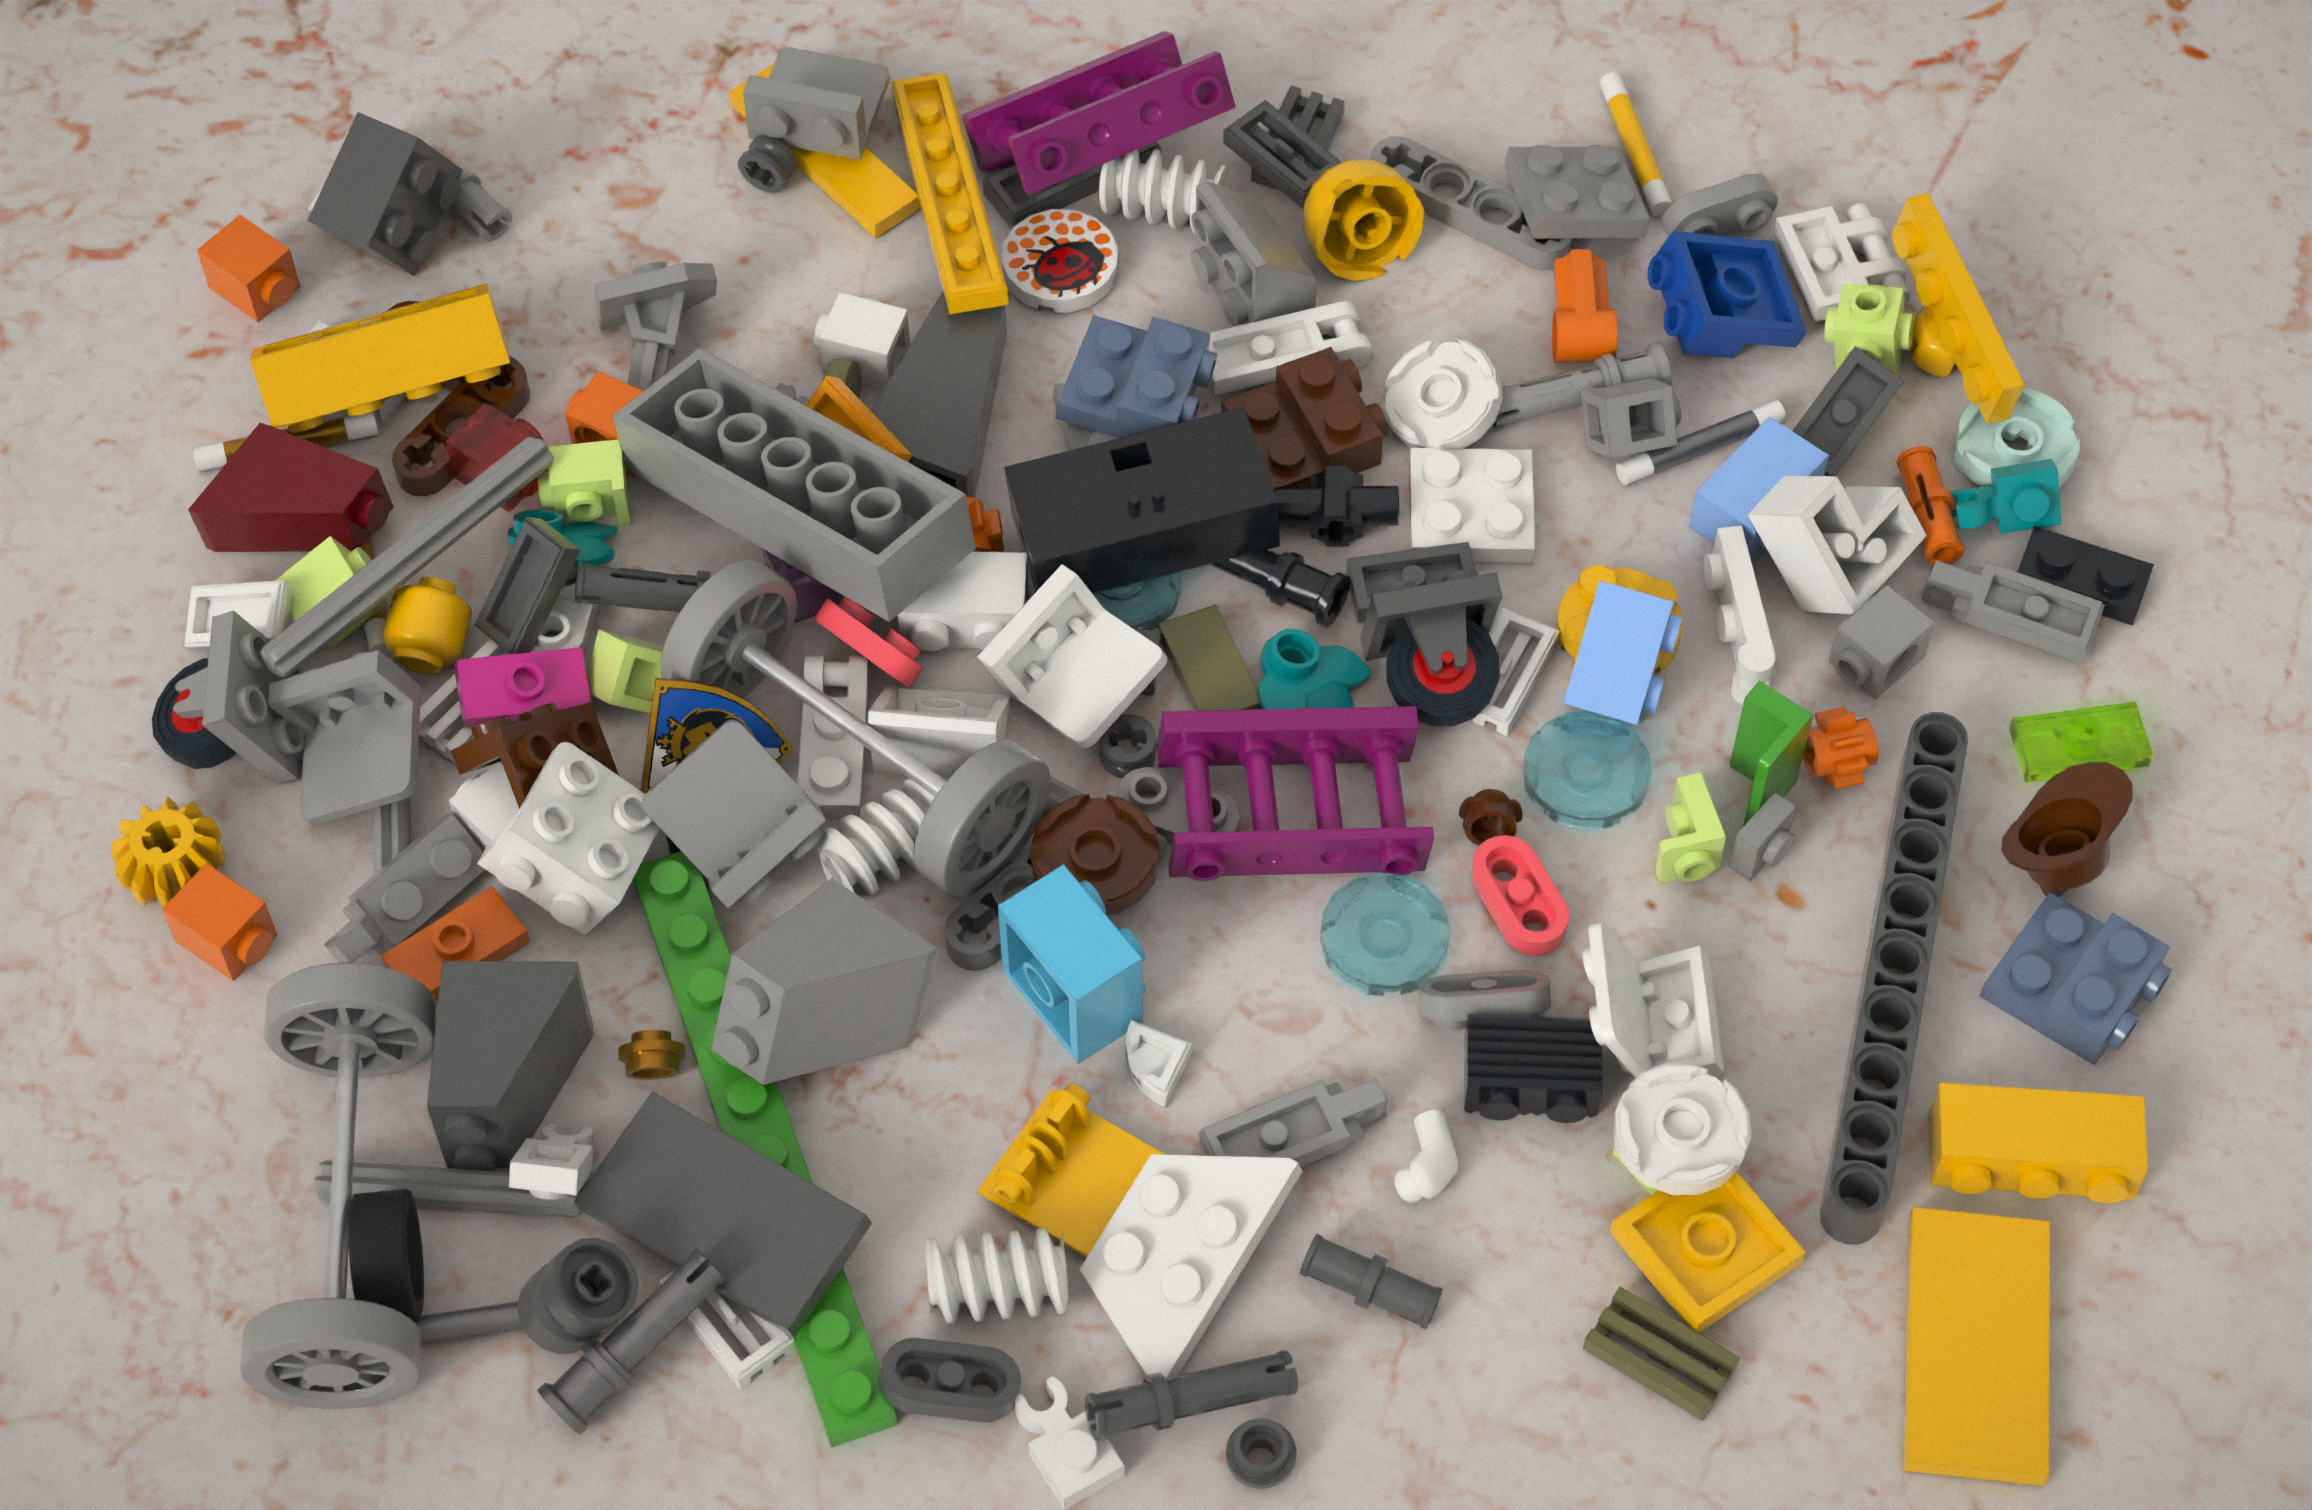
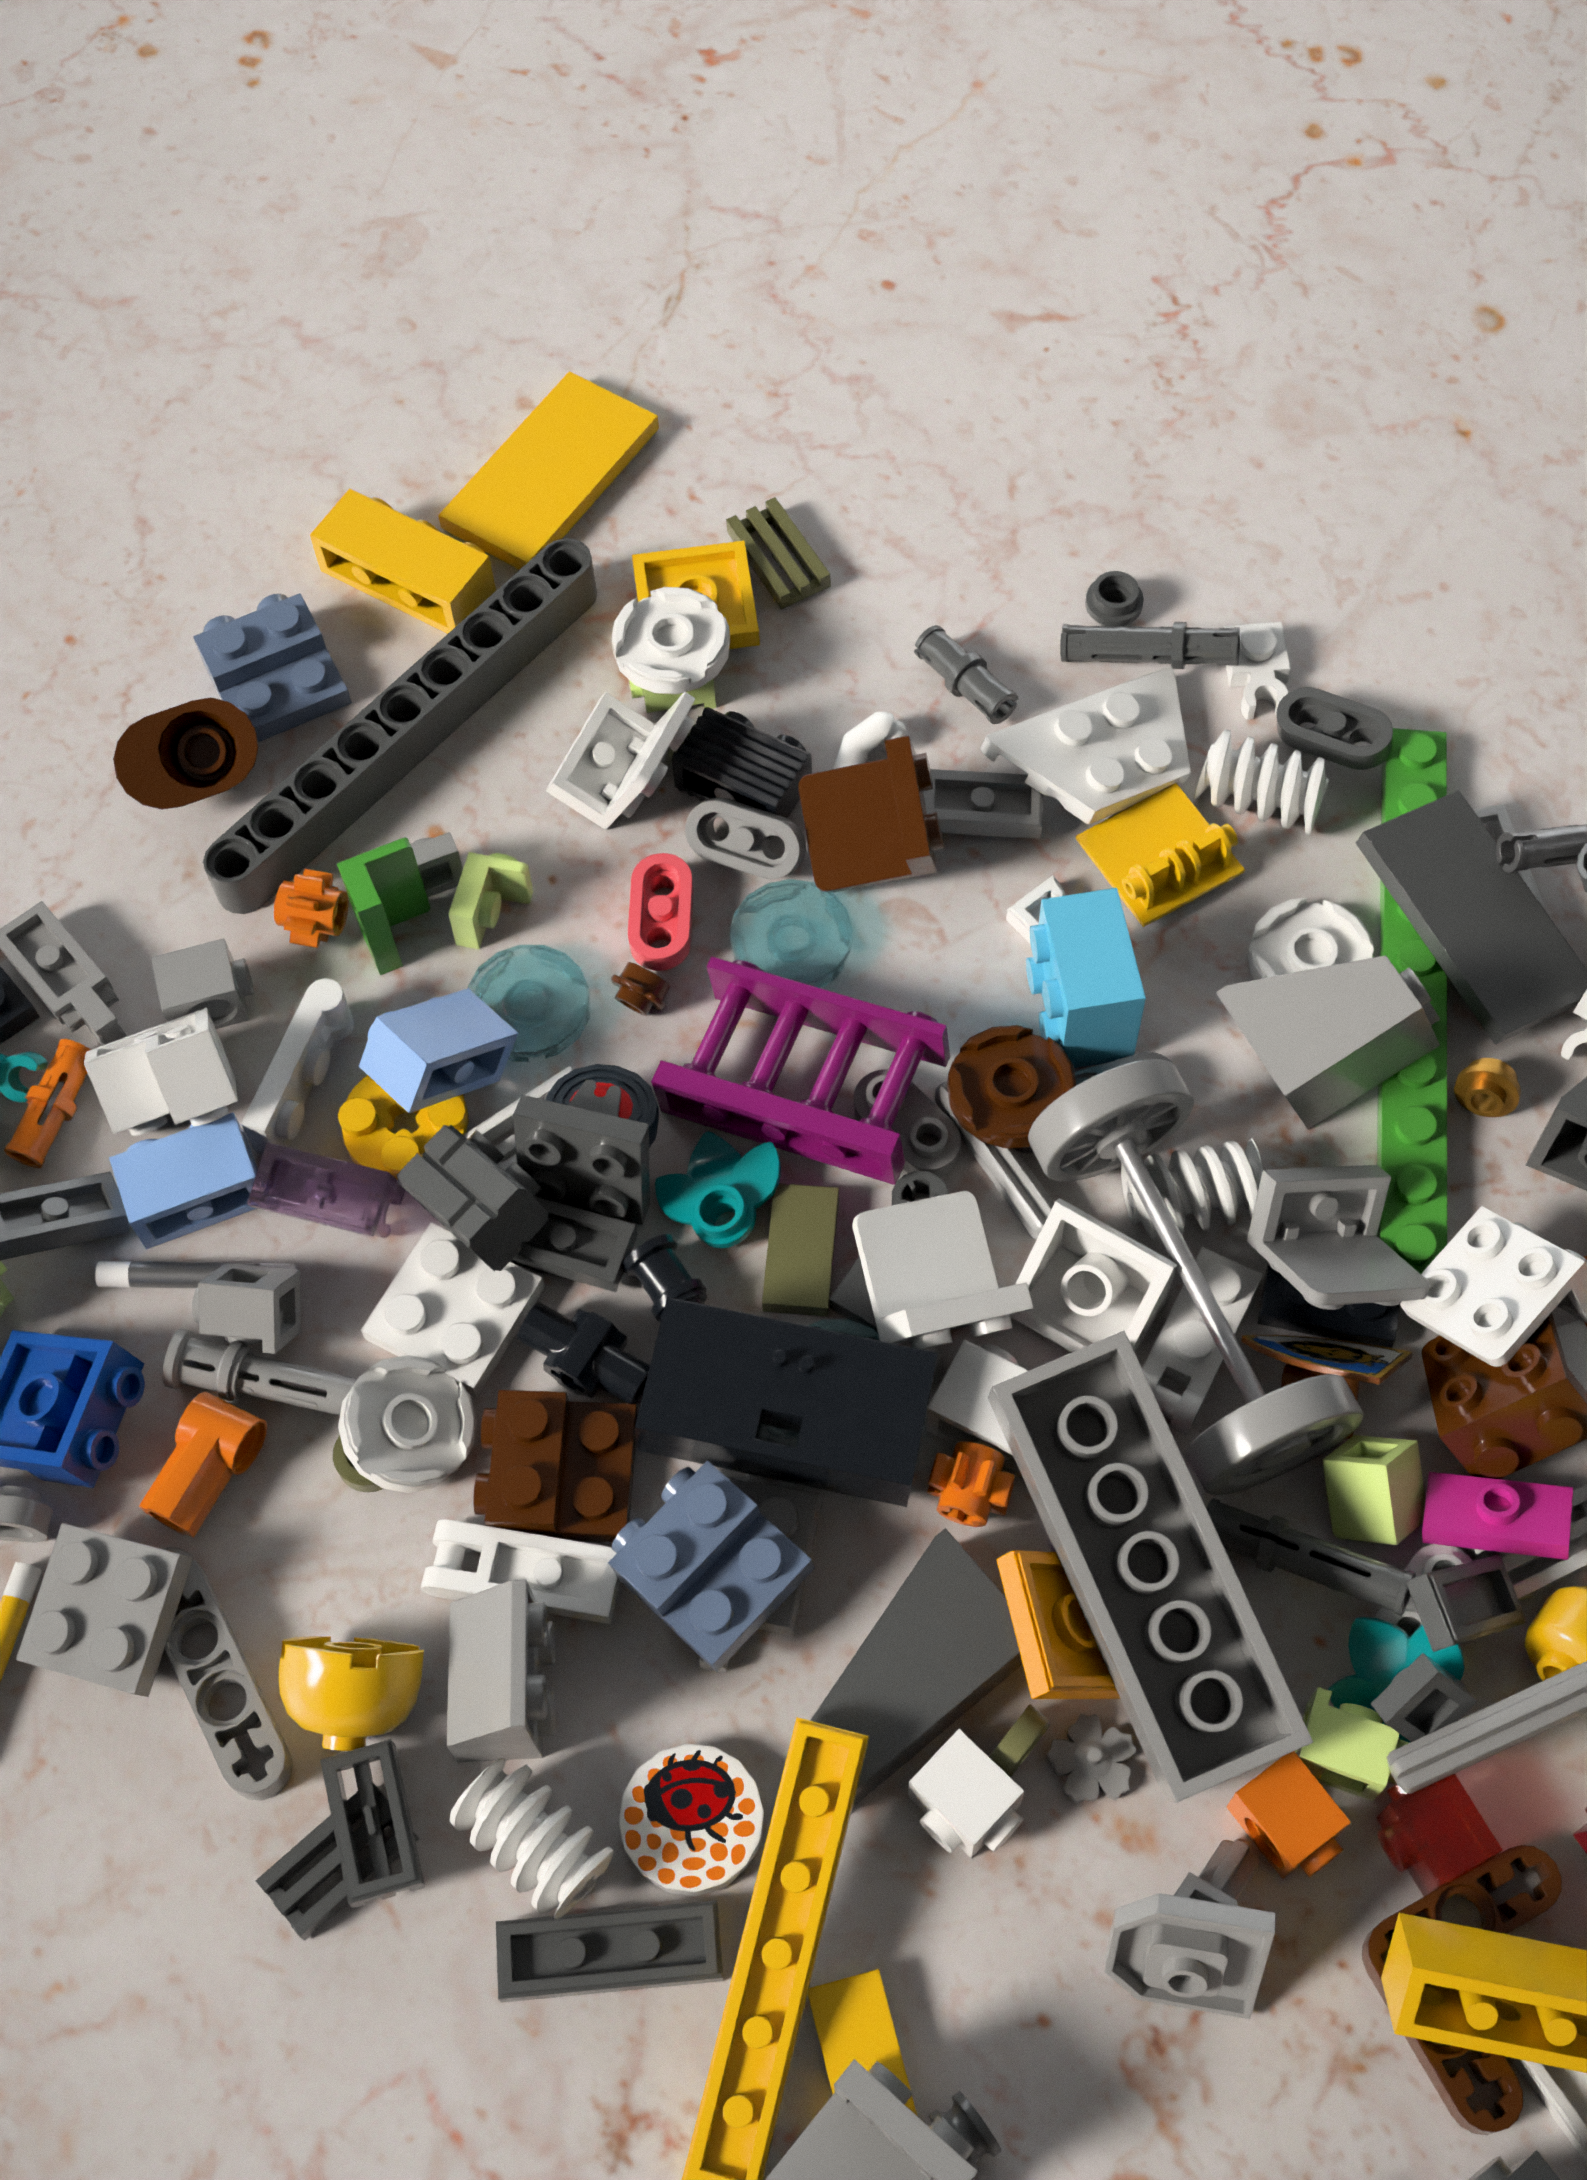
camera: 150 degrees left, 5 degrees up
(540, 498) = (1423, 1699): none -> dark grey plate
(874, 1135) = (1306, 937): none -> white tile
(1098, 111) = (559, 2035): magenta fence -> none
(1362, 1039) = (871, 820): none -> reddish brown bracket
(1499, 538) = (474, 1196): none -> dark grey brick
(1638, 525) = (325, 1191): none -> clear purple hinge
(2079, 736) = (108, 848): clear neon green plate -> none

